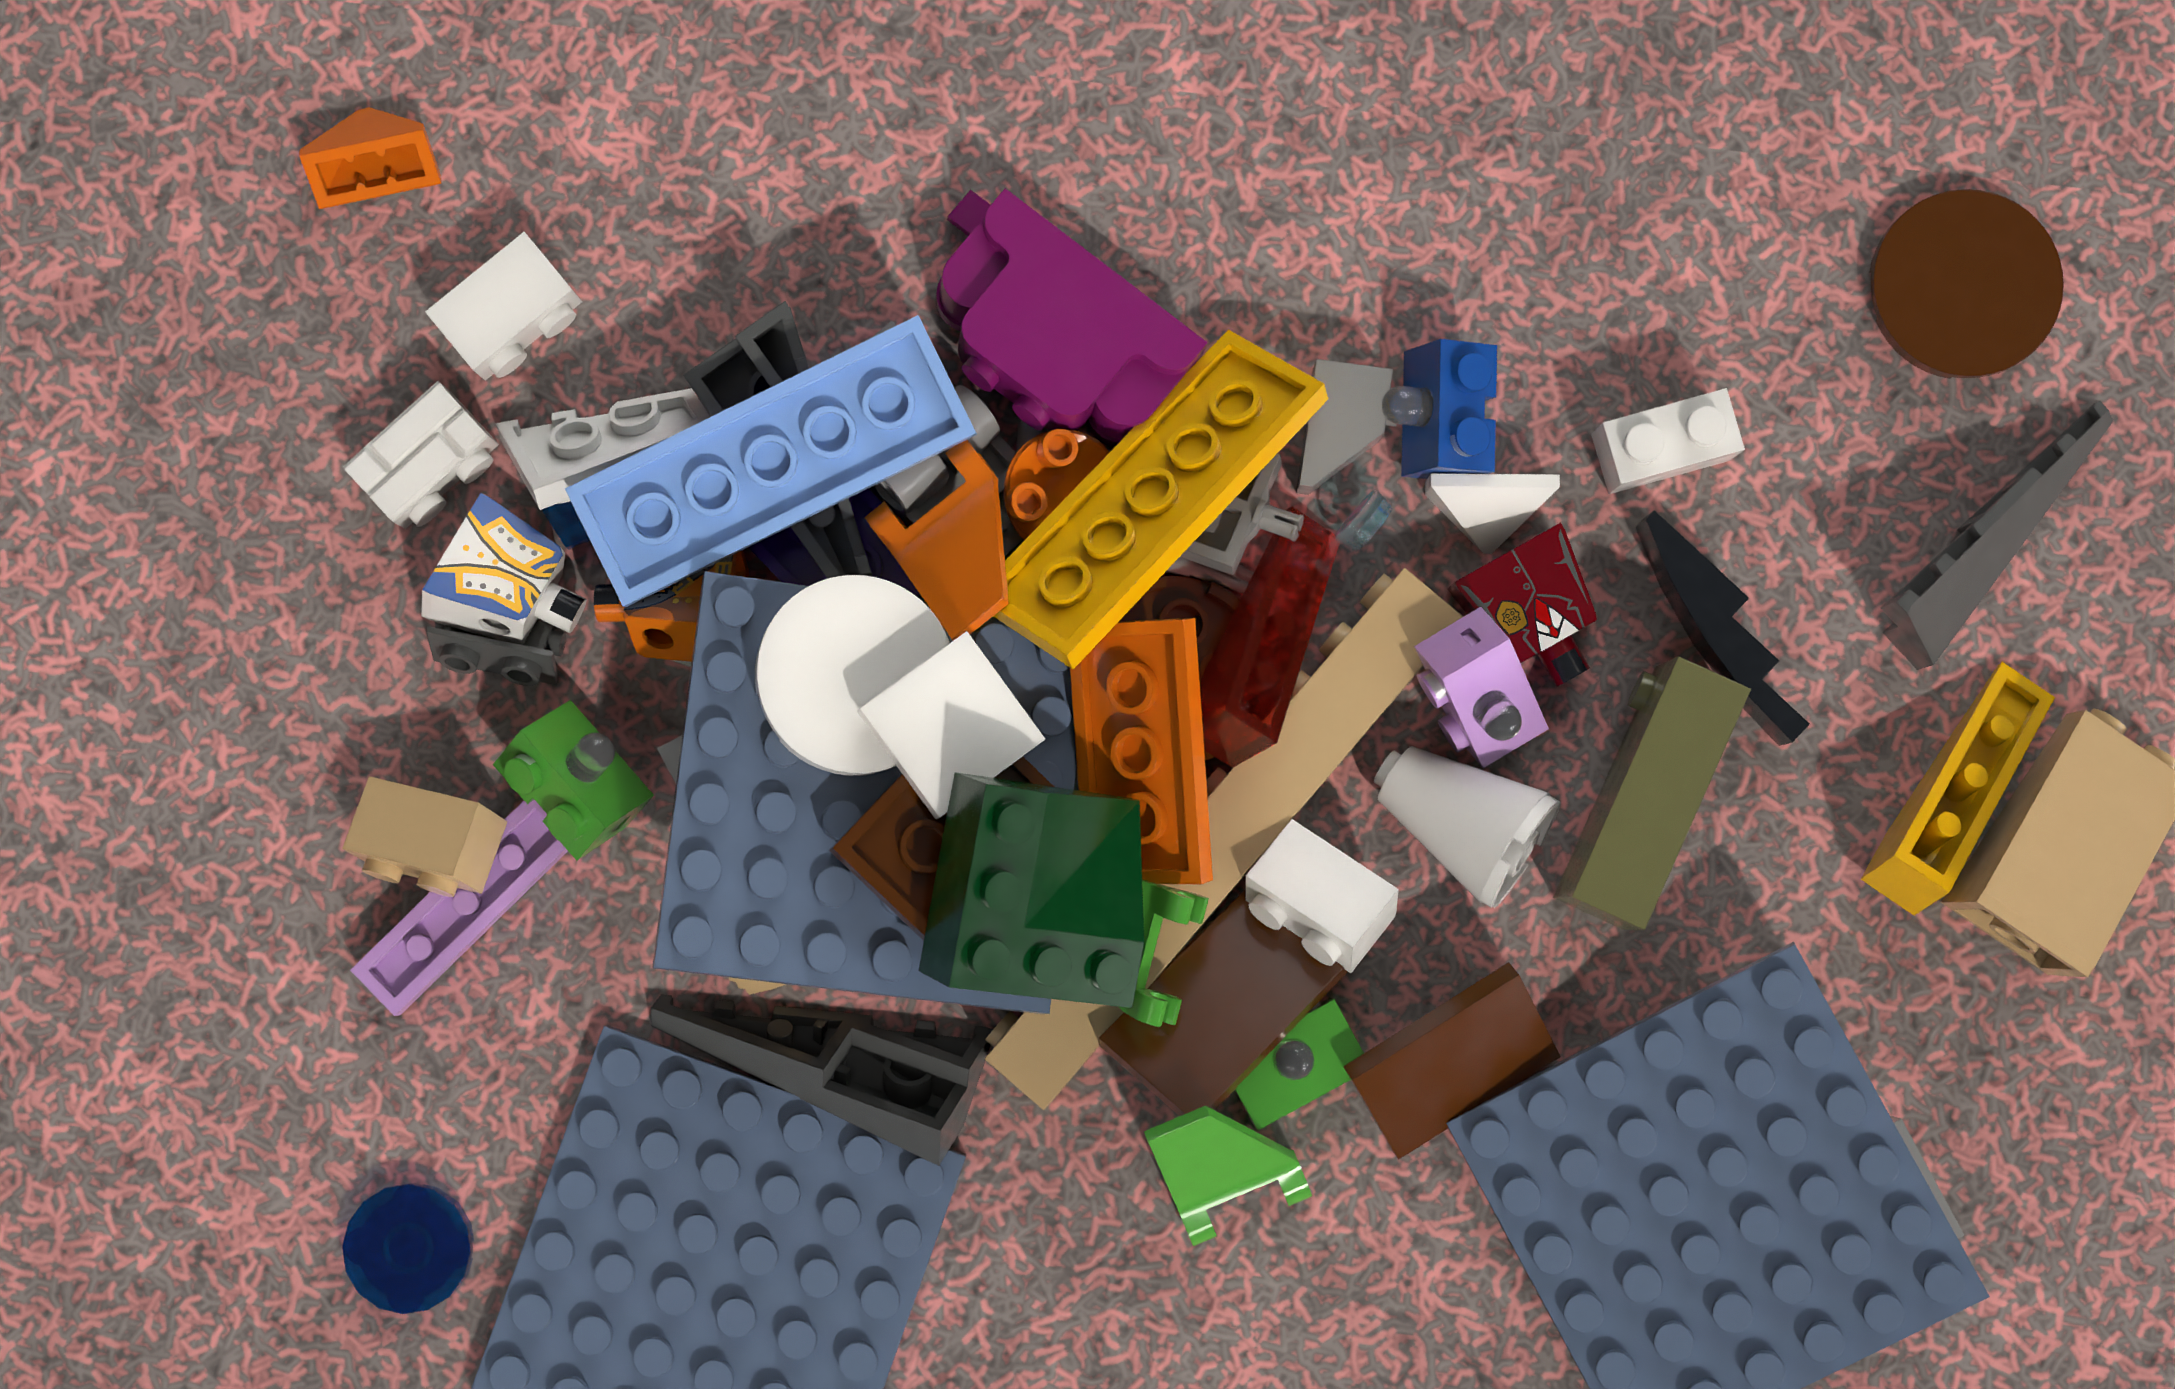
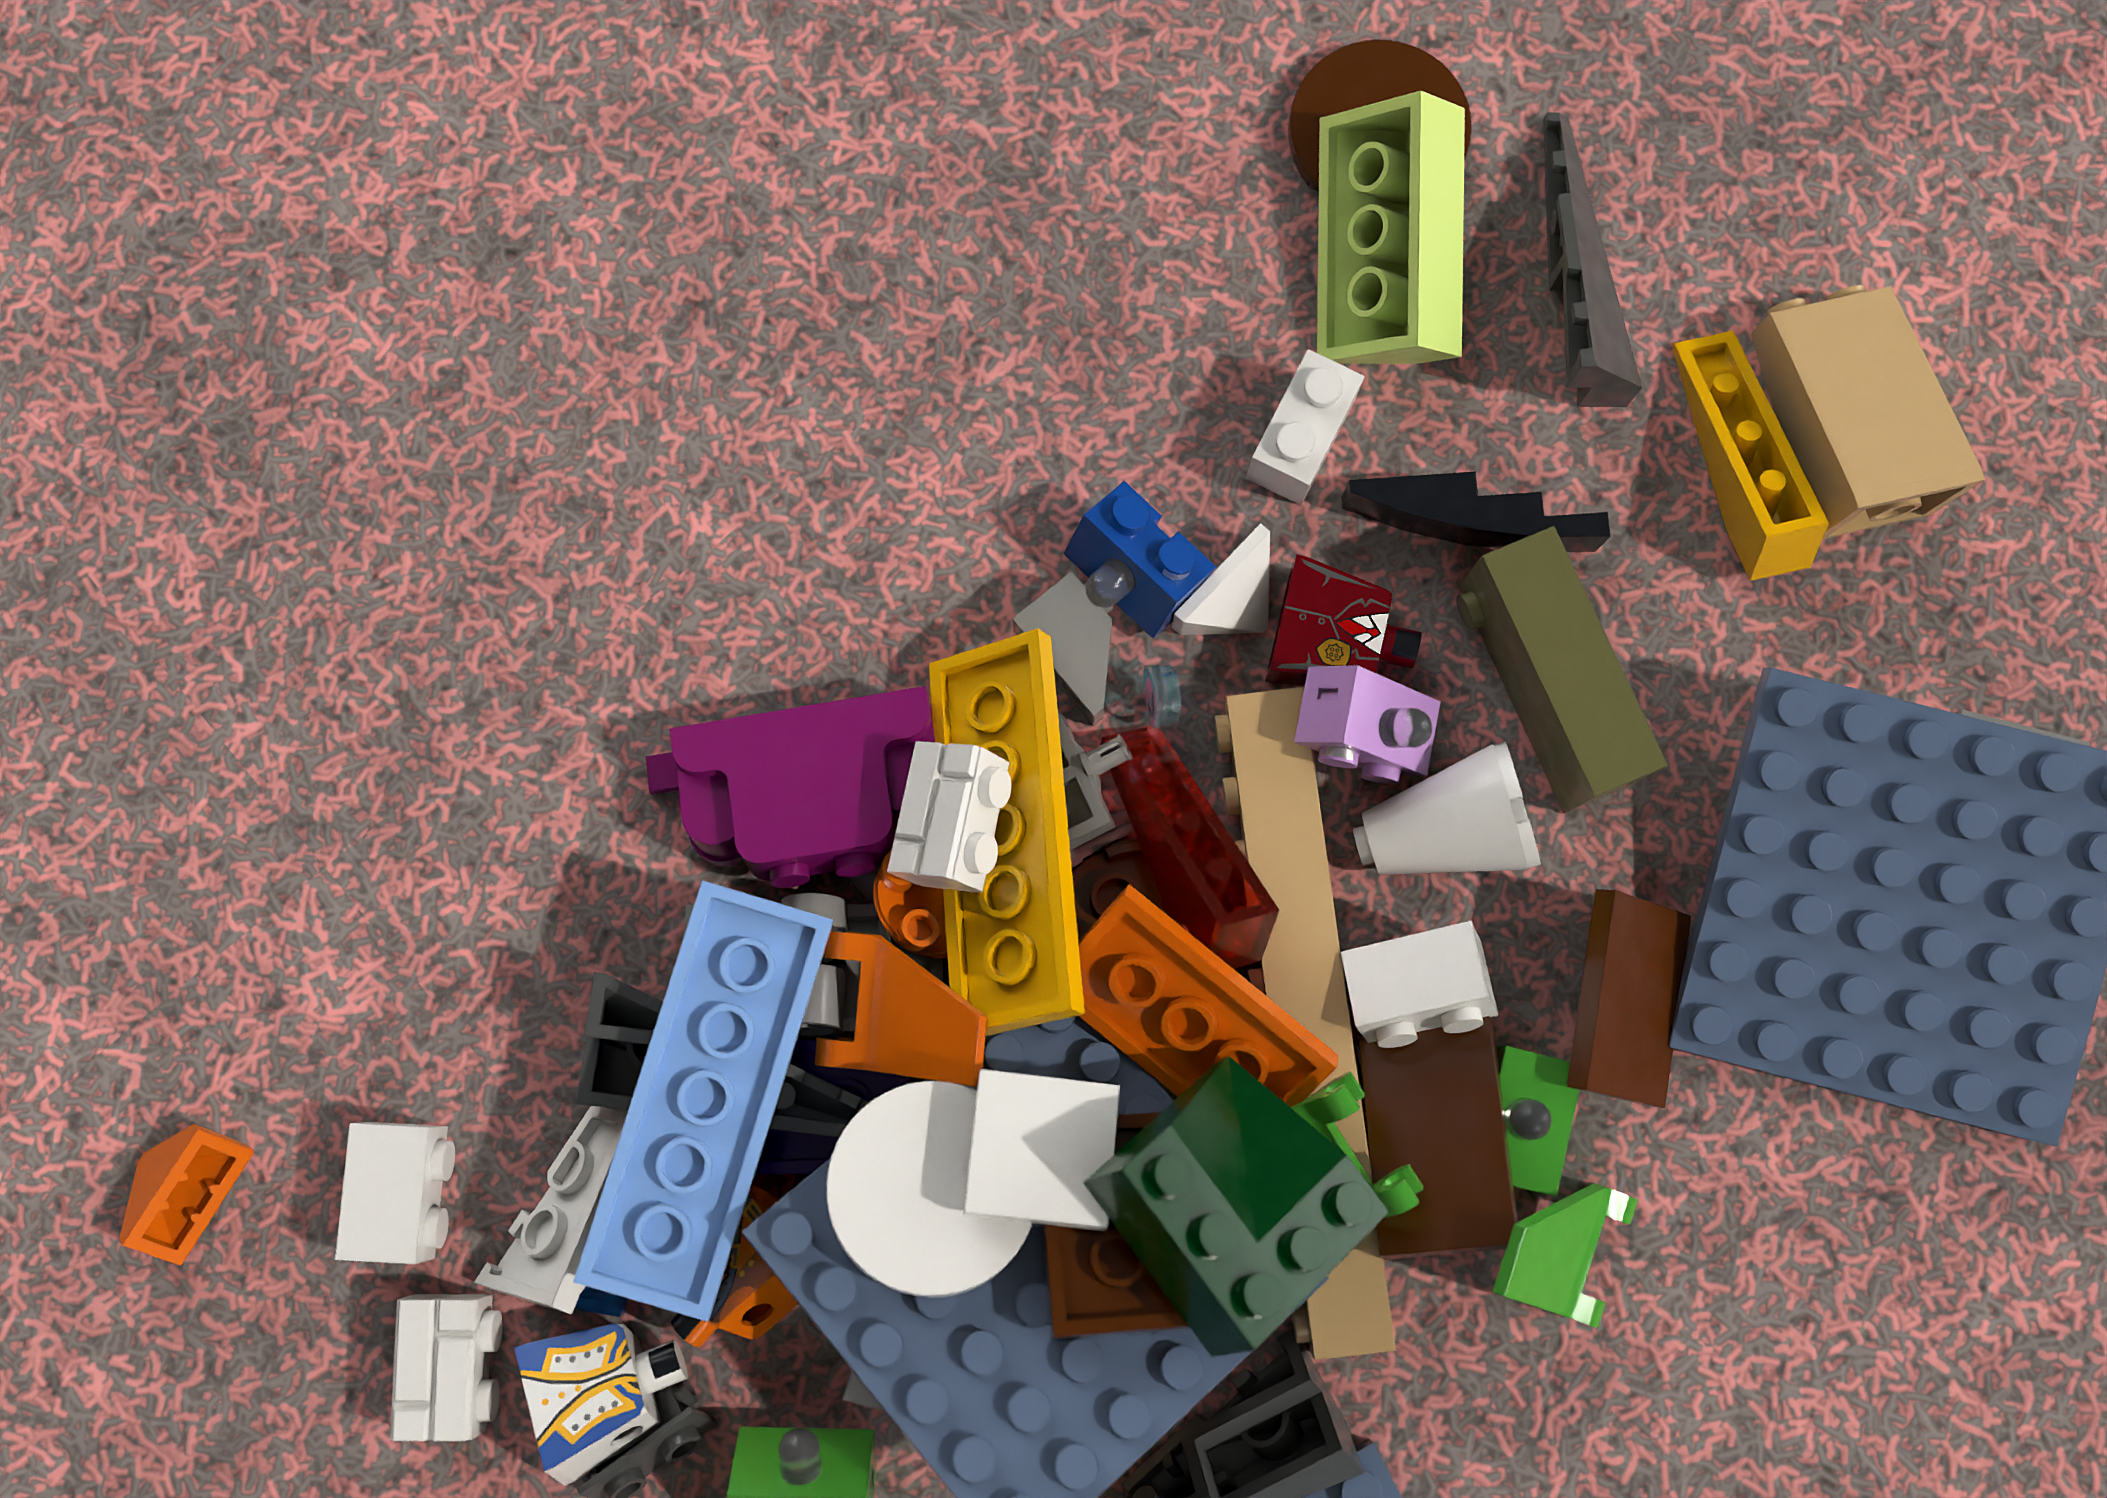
camera: 50 degrees left, 5 degrees down
(1126, 447) = (950, 816): none -> white brick
(1882, 368) = (1391, 232): none -> yellowish green slope

